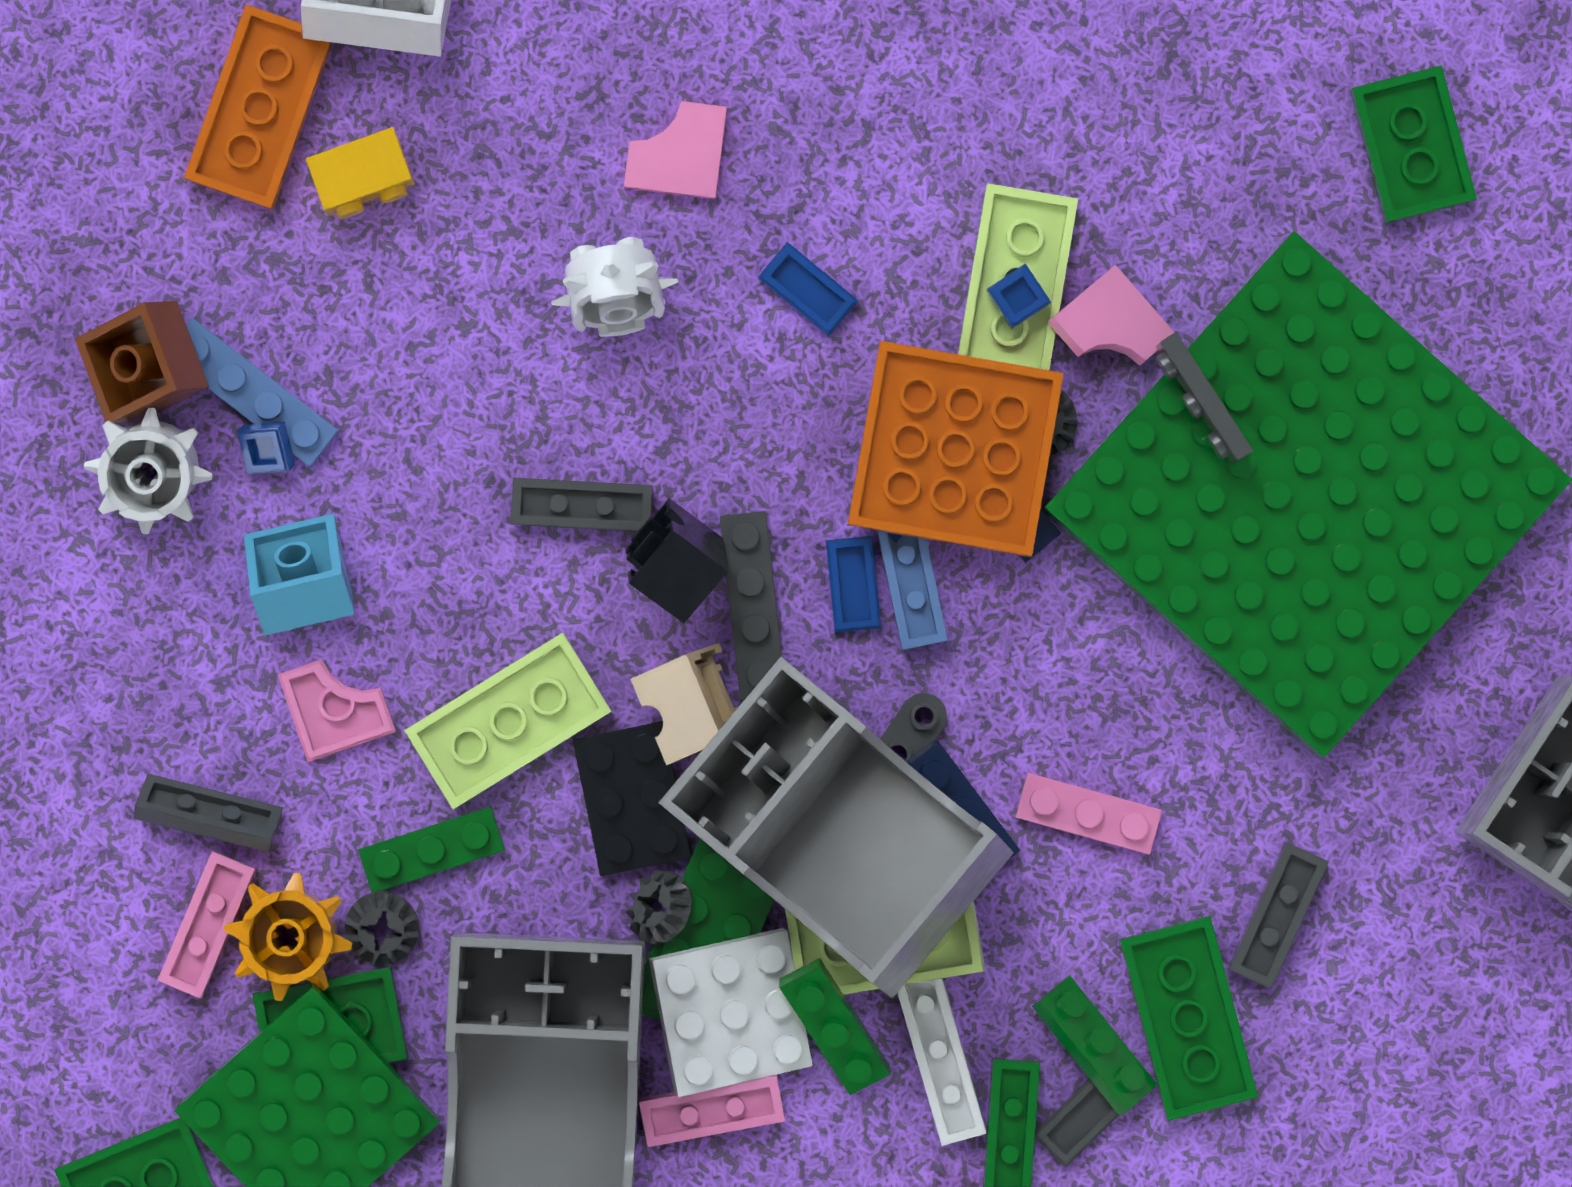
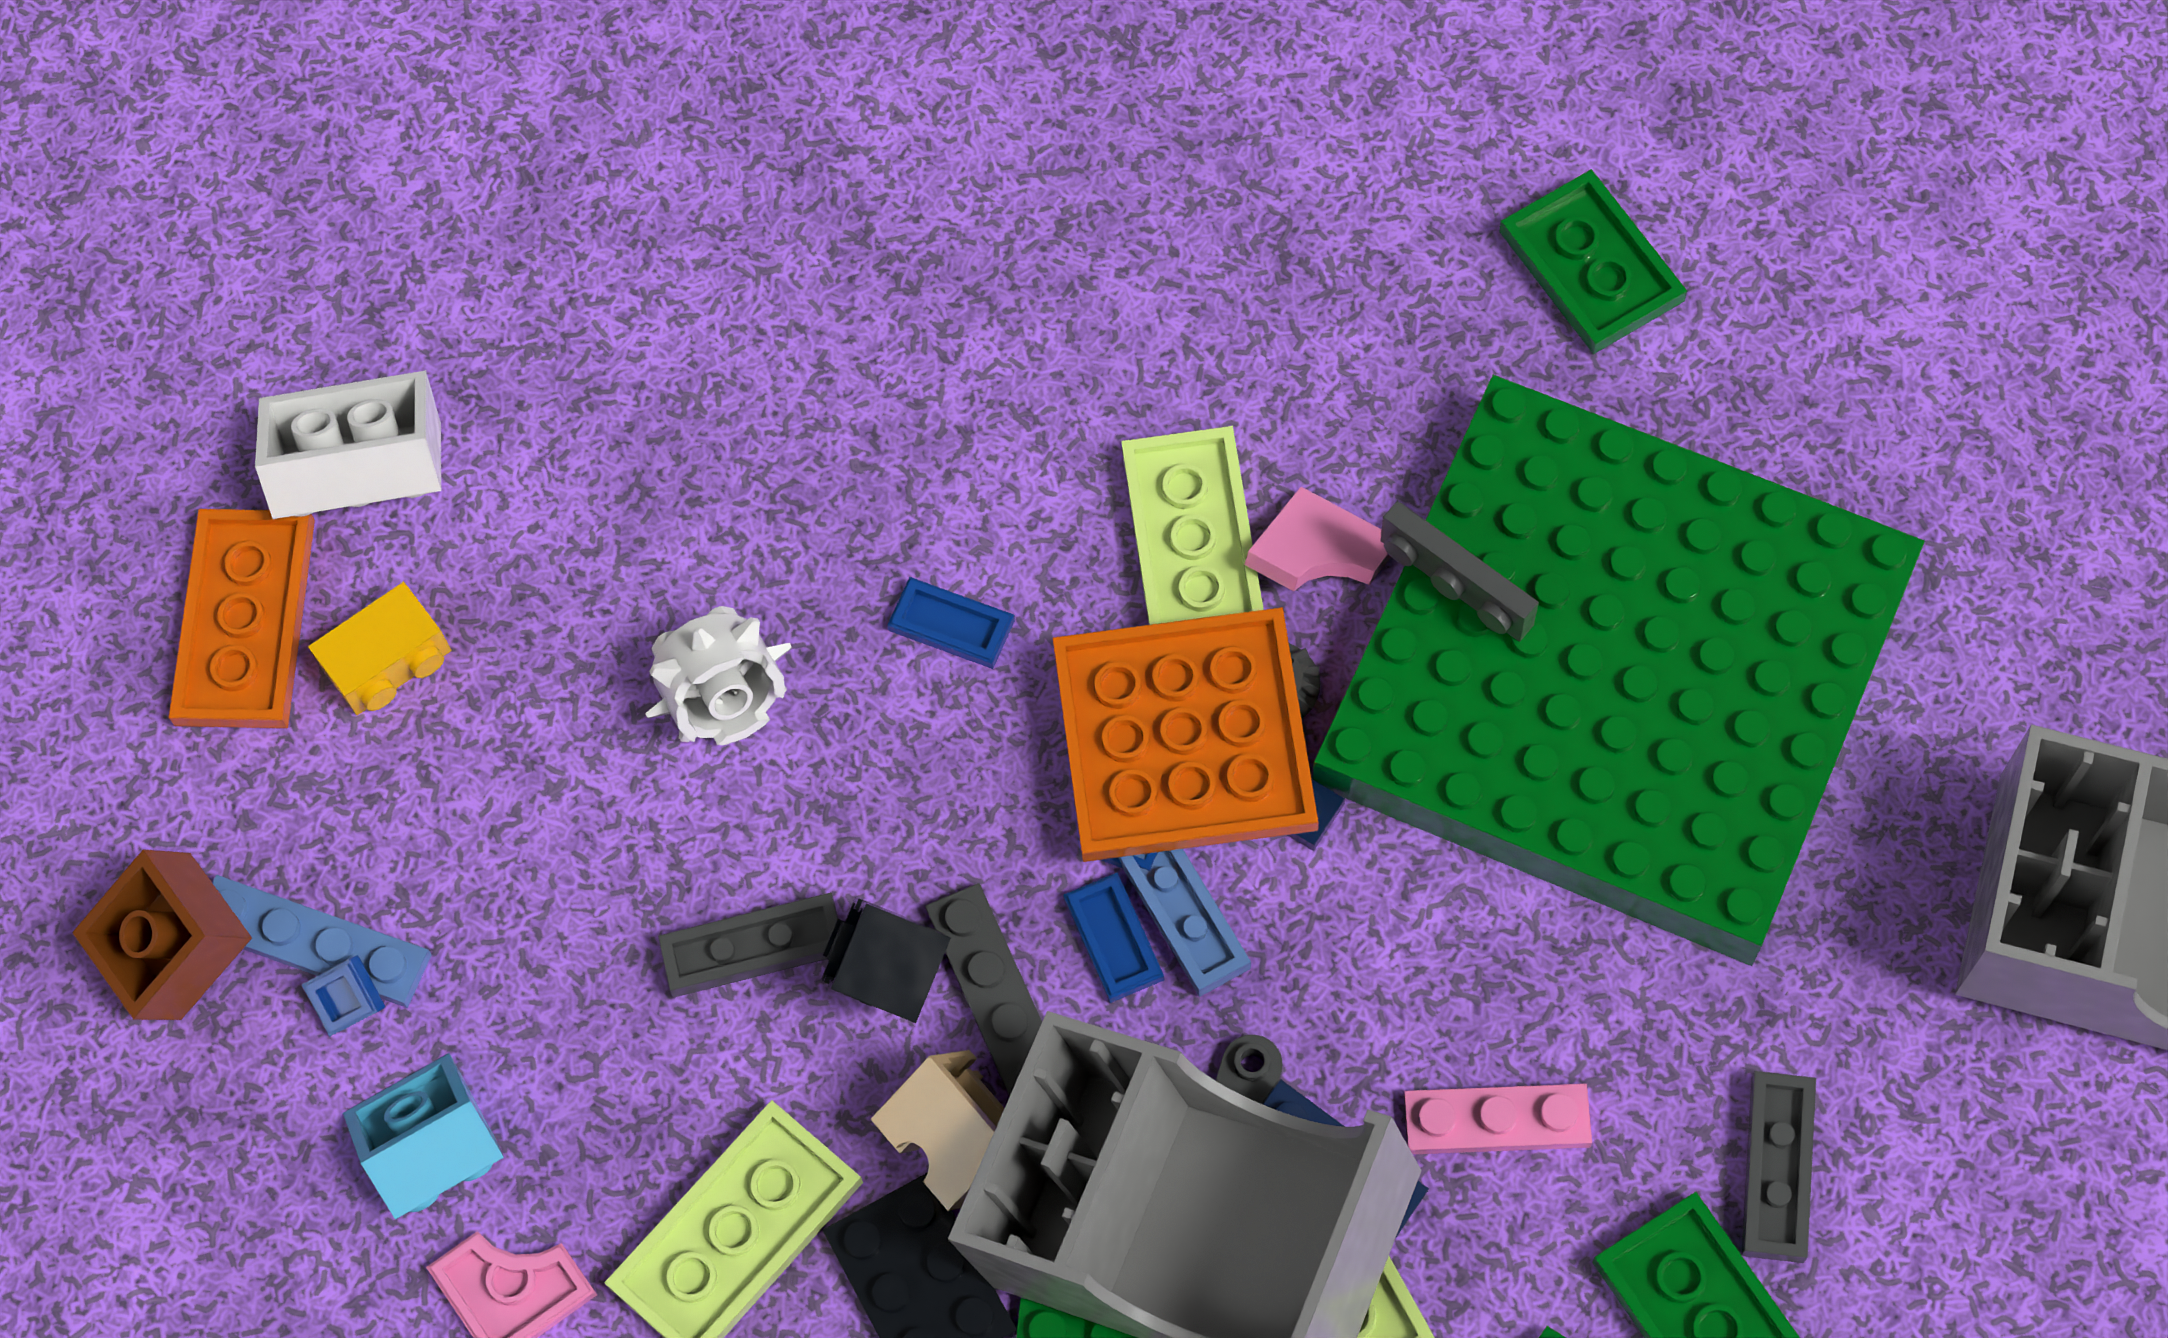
camera: 10 degrees left, 20 degrees down
(128, 487) = (173, 1038): white brick -> none
(683, 157) = (757, 526): bright pink tile -> none
(1018, 296) = (1200, 546): blue tile -> none

